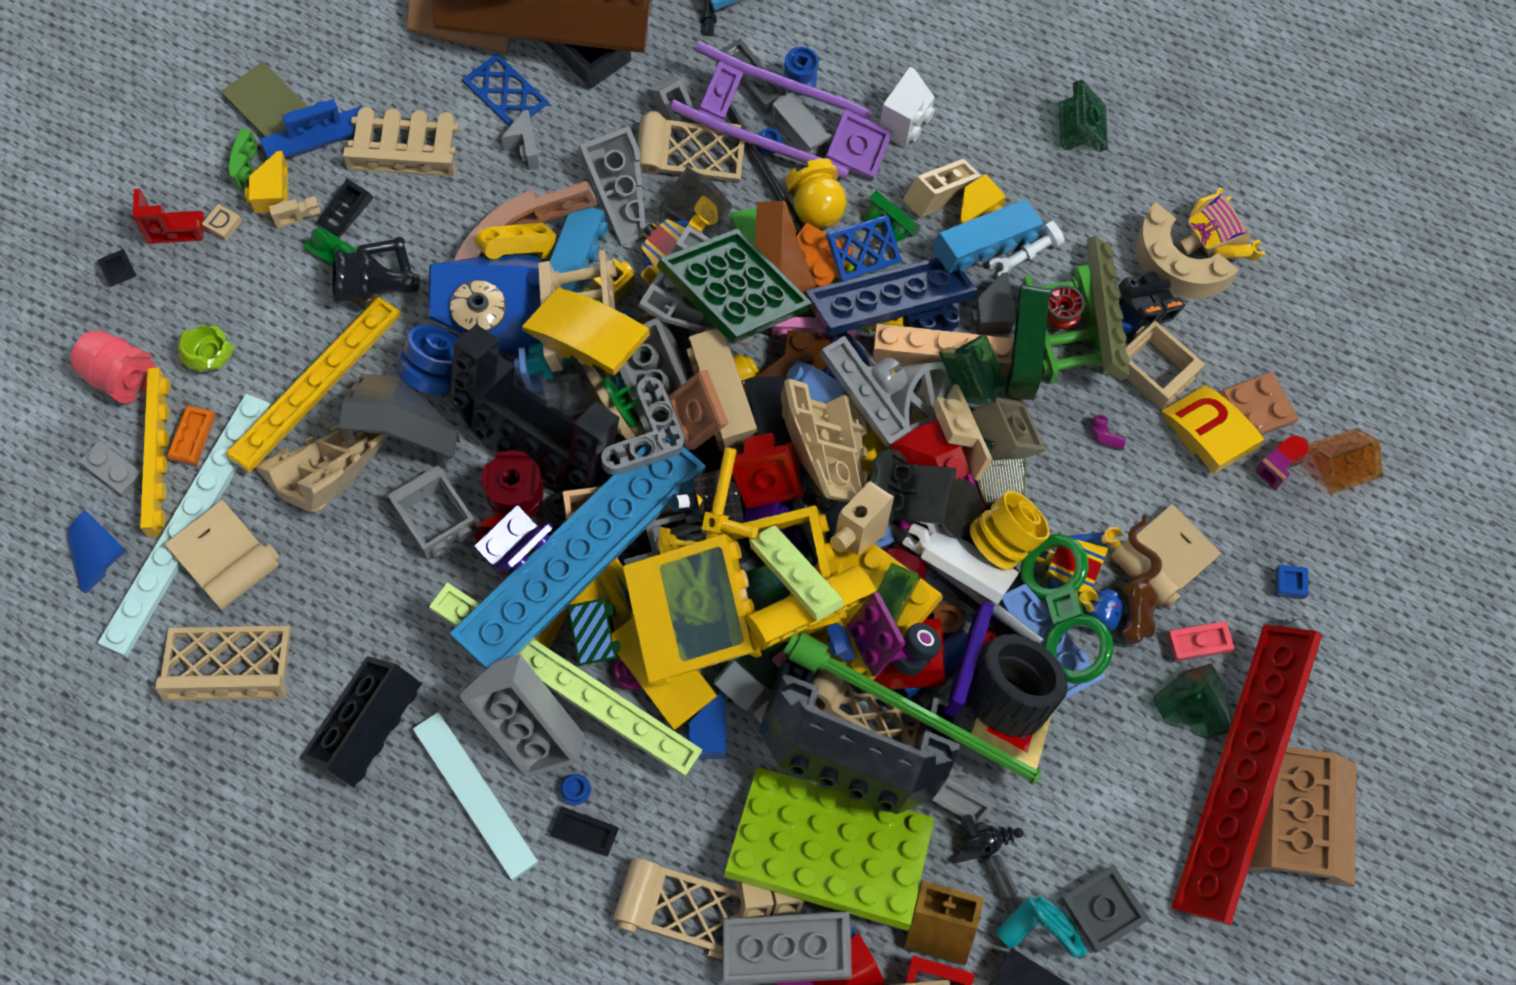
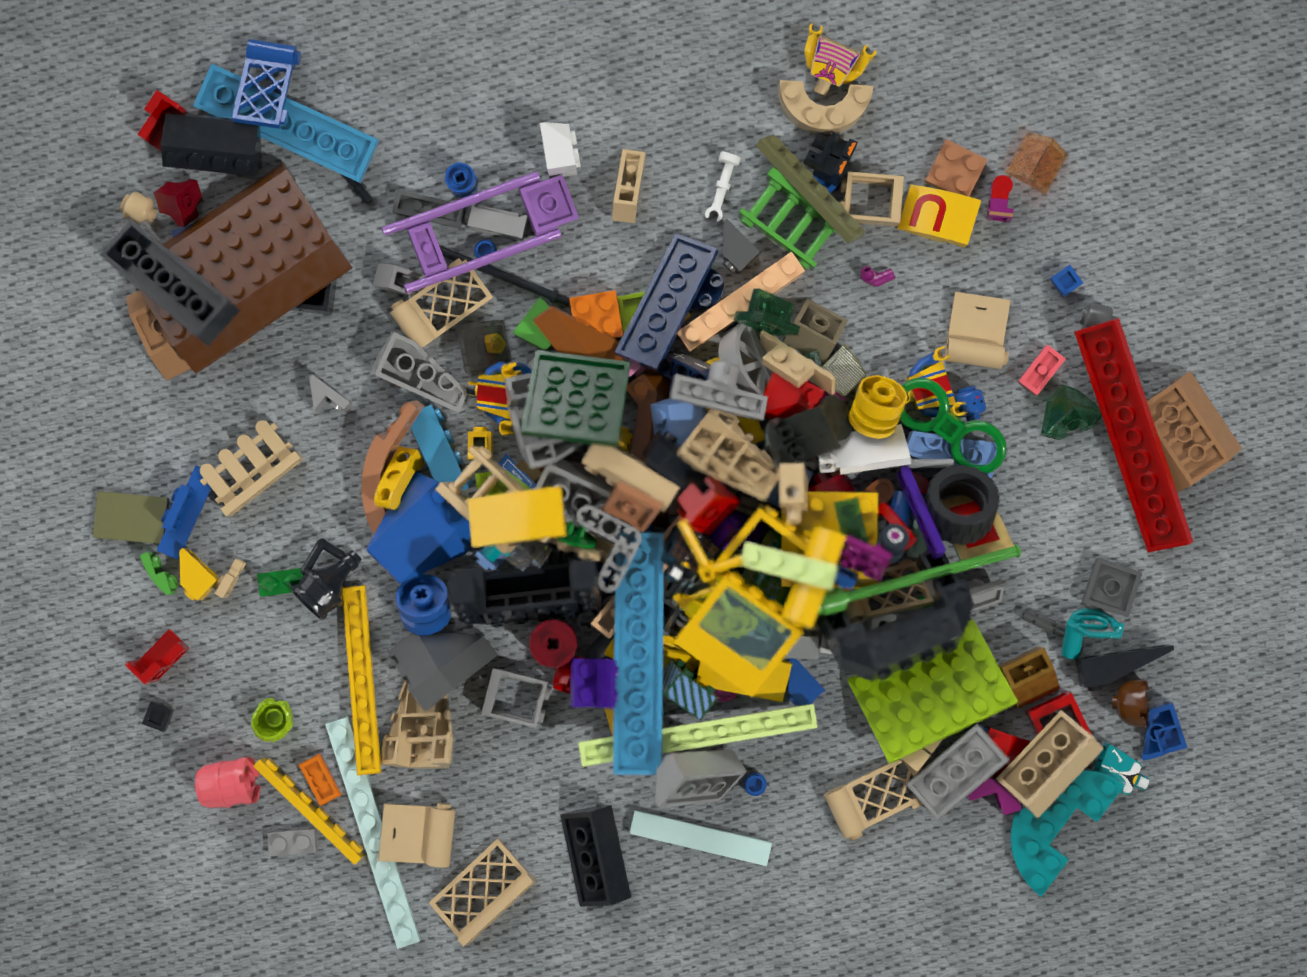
camera: 35 degrees left, 20 degrees up
(91, 550) = (335, 899): blue slope -> none
(222, 222) = (190, 626): tan tile -> none
(341, 196) = (263, 525): black slope -> none
(486, 315) = (422, 562): tan dish -> none
(509, 72) = (286, 384): blue window -> none
(584, 831) = (782, 803): black tile -> none
(817, 193) = (560, 271): yellow tile -> none
(840, 255) = (613, 306): blue window -> none
(900, 222) = (604, 239): green tile -> none
(980, 199) = (662, 179): yellow slope -> none
(982, 840) = (1011, 608): black piece -> none
(987, 236) = (691, 200): dark azure brick -> none
(1028, 343) = (784, 262): dark green beam -> none
(1073, 304) = (784, 204): red wheel -> none
(1083, 119) = (679, 51): clear green bracket -> none
(1140, 594) = (984, 373): reddish brown animal -> none

